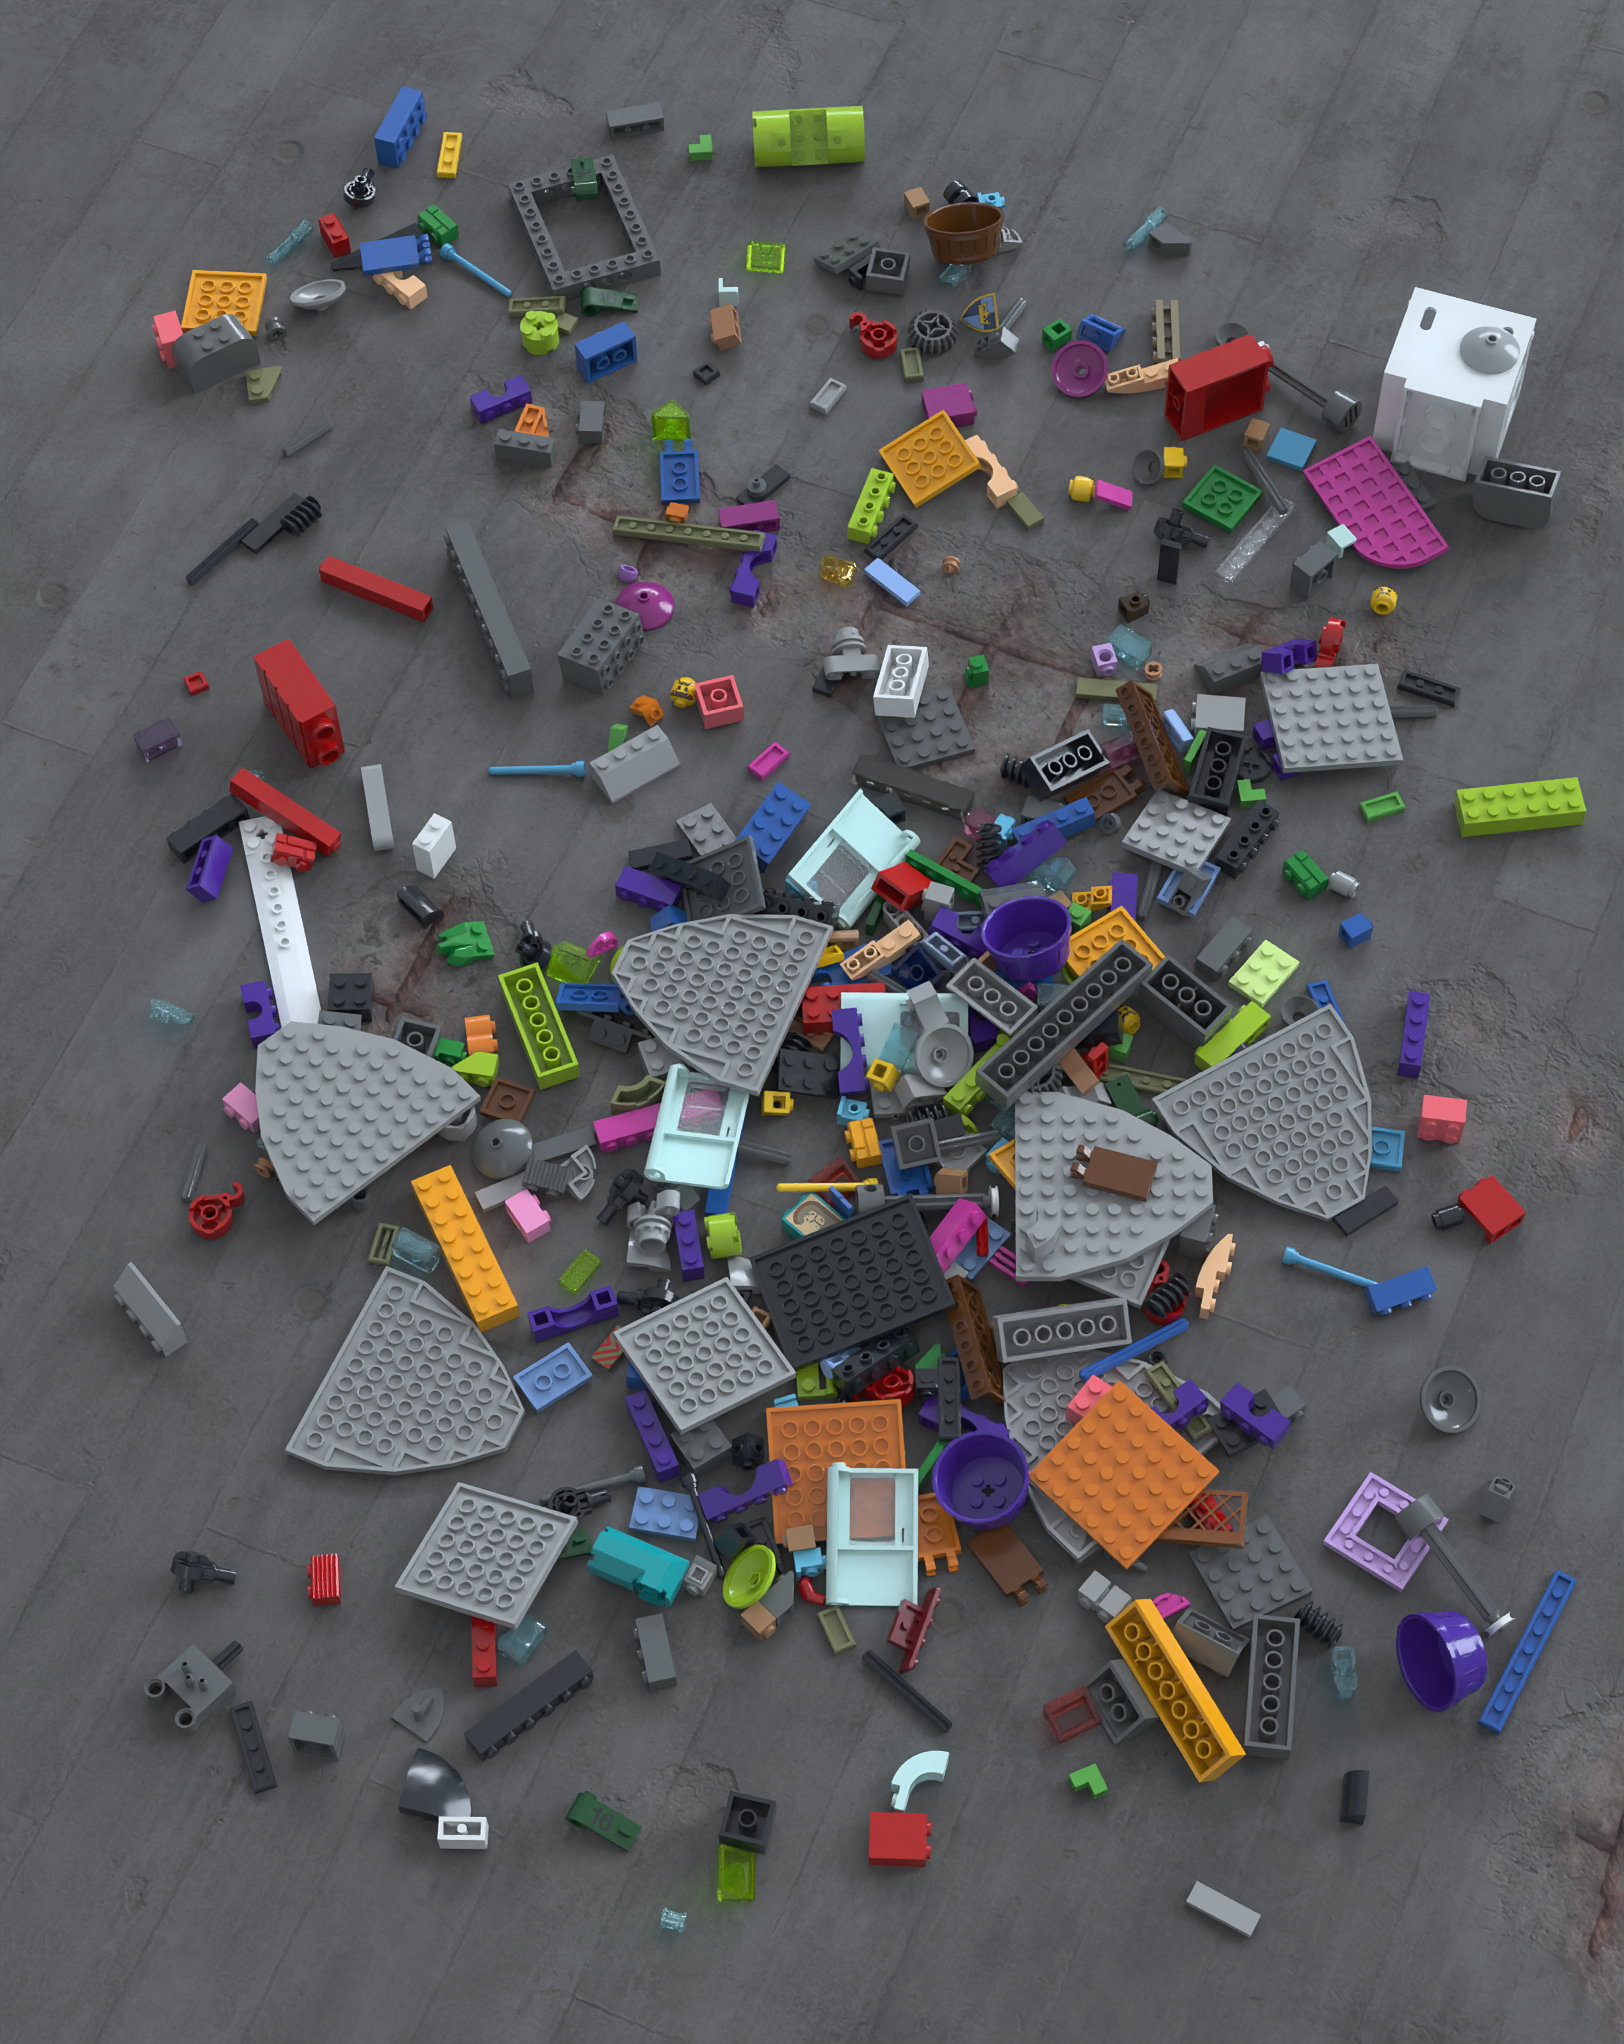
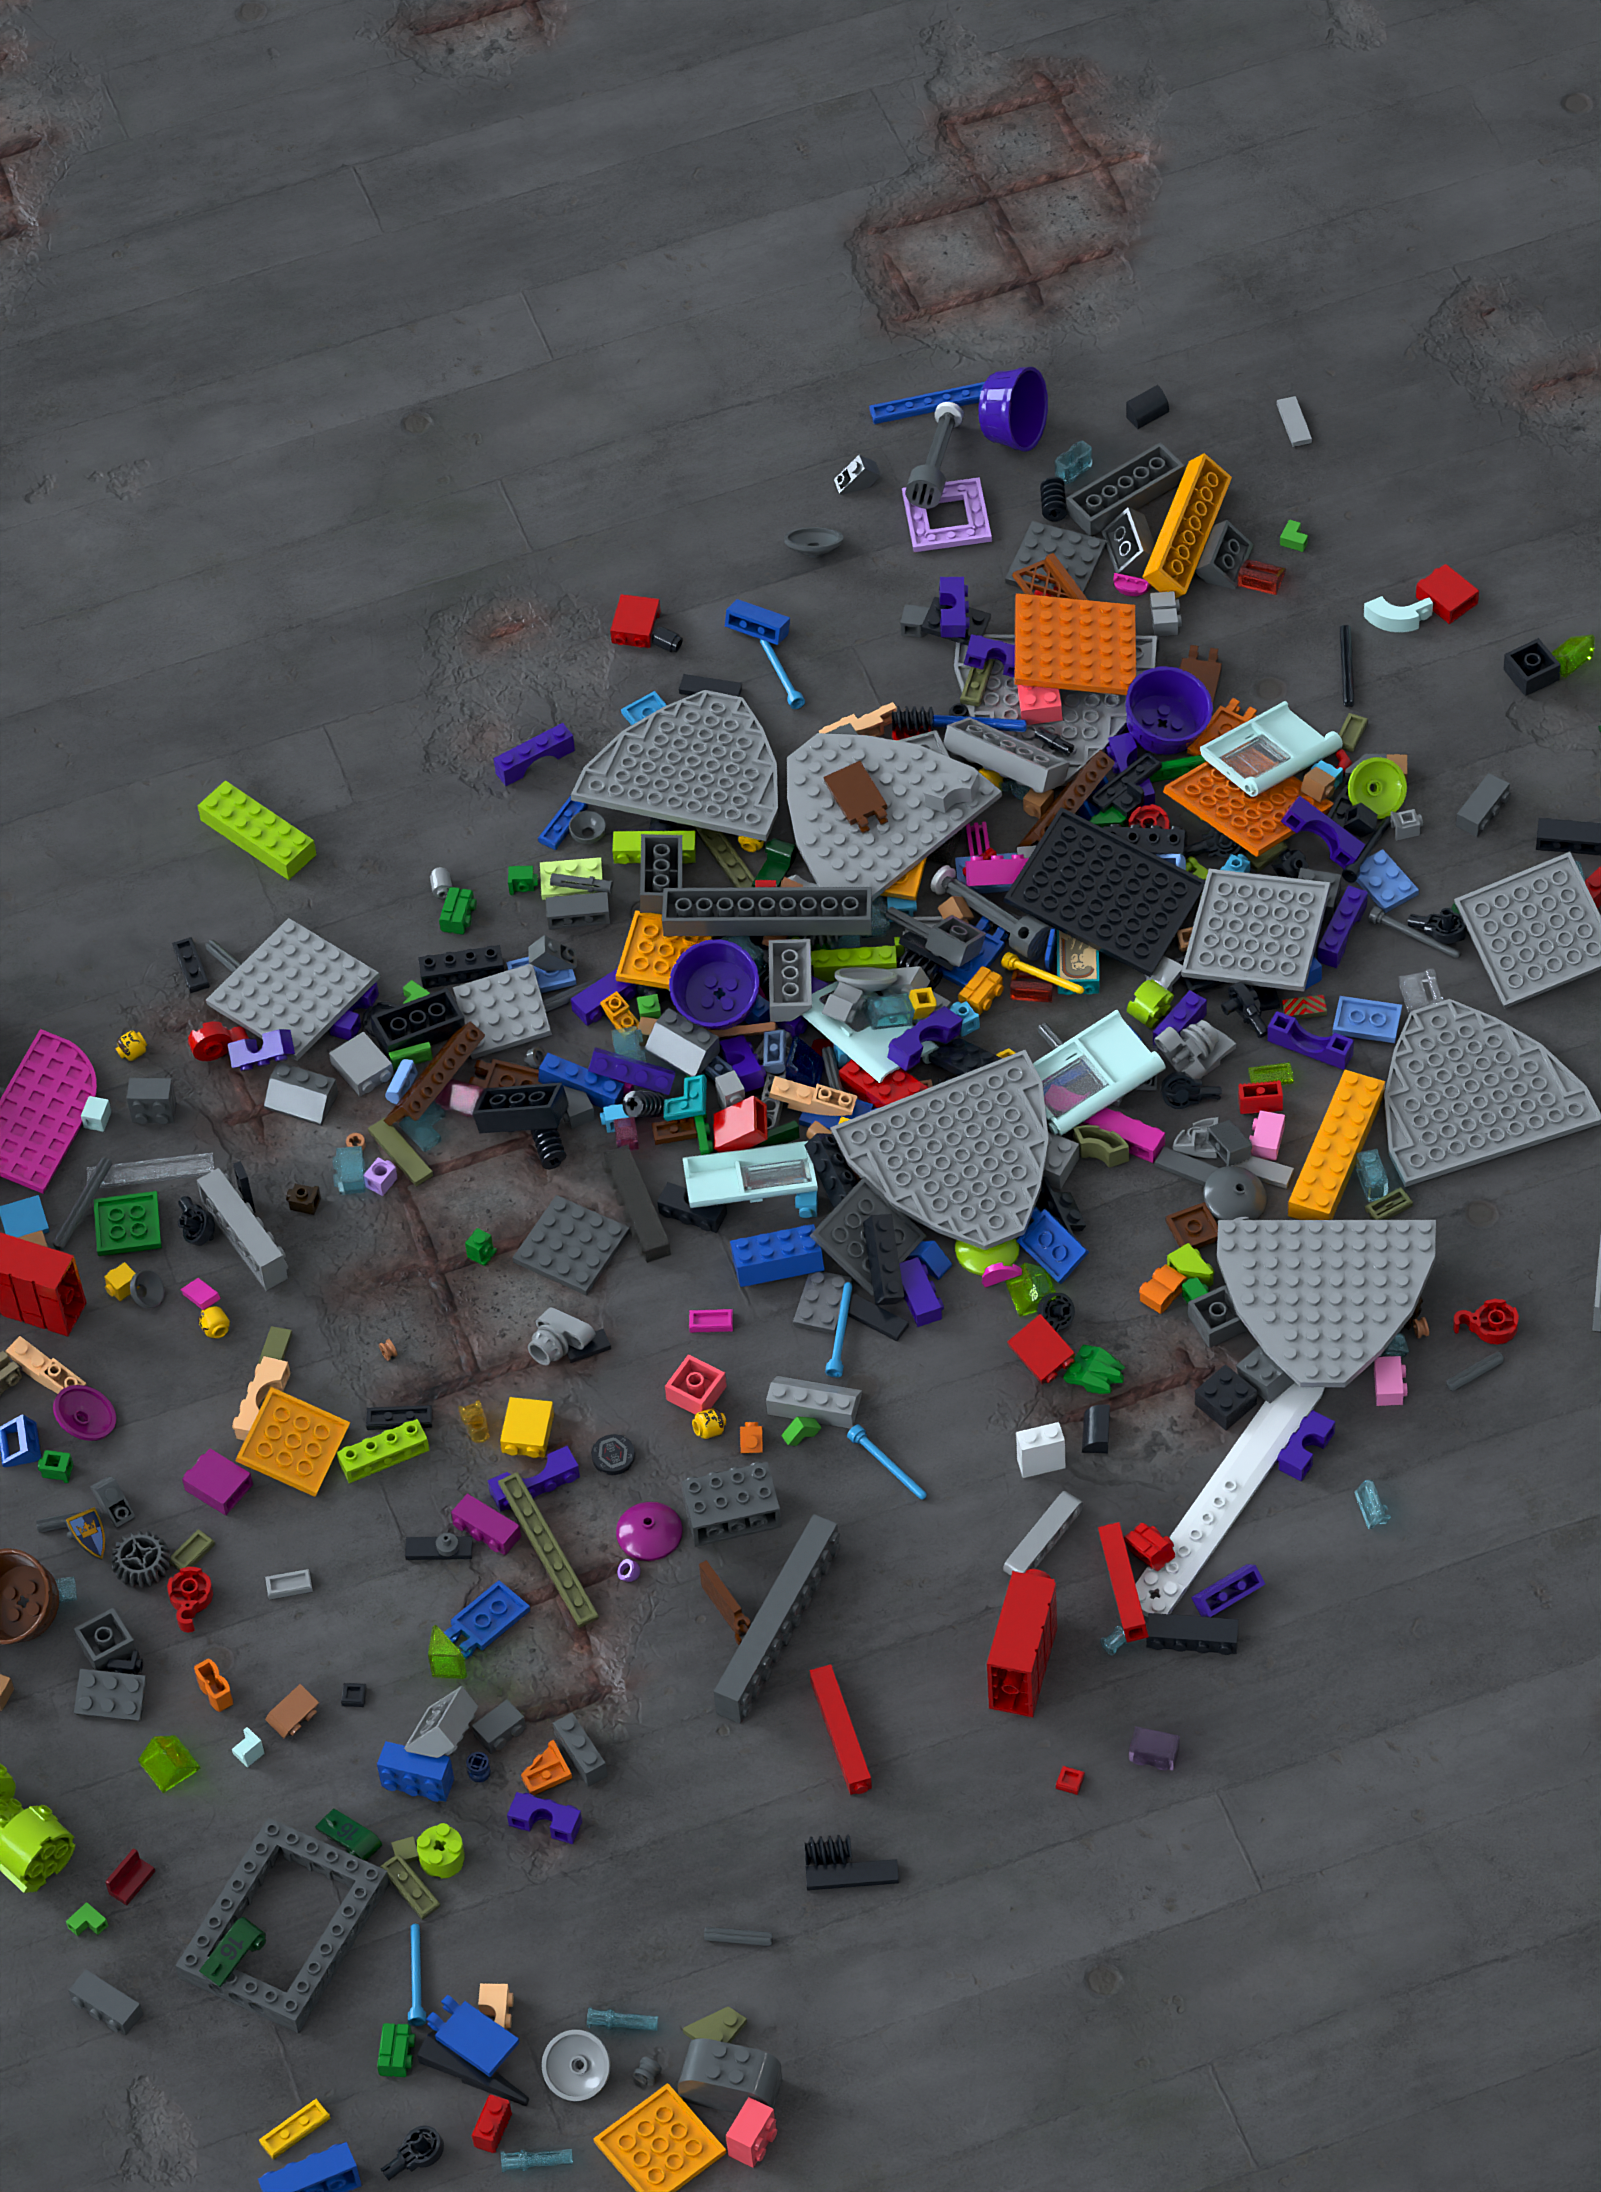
camera: 130 degrees left, 5 degrees down
(221, 552) = (923, 1886): black axle -> none
(330, 337) = (611, 2019): none -> clear light blue pin
(512, 914) = (1042, 1349): none -> red brick
(534, 590) = (723, 1601): none -> reddish brown tile
(539, 1026) = (1113, 1255): lime brick -> none
(539, 1435) = (1414, 992): none -> clear plate
(561, 1235) = (1260, 1097): none -> red brick
(576, 392) = (478, 1772): none -> dark blue wheel
(616, 378) = (443, 1725): none -> light grey slope
(638, 1566) = (1442, 853): teal brick -> none
(646, 797) = (835, 1367): none -> dark azure piece
(677, 513) = (536, 1578): orange bracket -> none
(706, 185) = (129, 1877): none -> dark red panel
(725, 628) = (613, 1454): none -> black tile
(791, 301) = (213, 1685): none -> orange brick
(798, 593) = (527, 1427): none -> yellow brick
(892, 582) = (445, 1380): light blue tile -> none
(901, 681) = (549, 1274): white brick -> none
(910, 1627) = (1302, 690): dark red bracket -> none
(959, 872) = (689, 1105): none -> teal tile
(1047, 1388) = (1054, 741): none -> black pin
(1135, 544) = (243, 1229): none -> light grey brick
(1236, 967) = (590, 884): none -> dark grey pin
(1293, 936) = (521, 879): none -> green brick
(1355, 930) = (476, 848): blue brick -> none
(1382, 807) = (339, 915): bright green tile -> none
(1441, 1119) = (594, 685): coral brick -> none

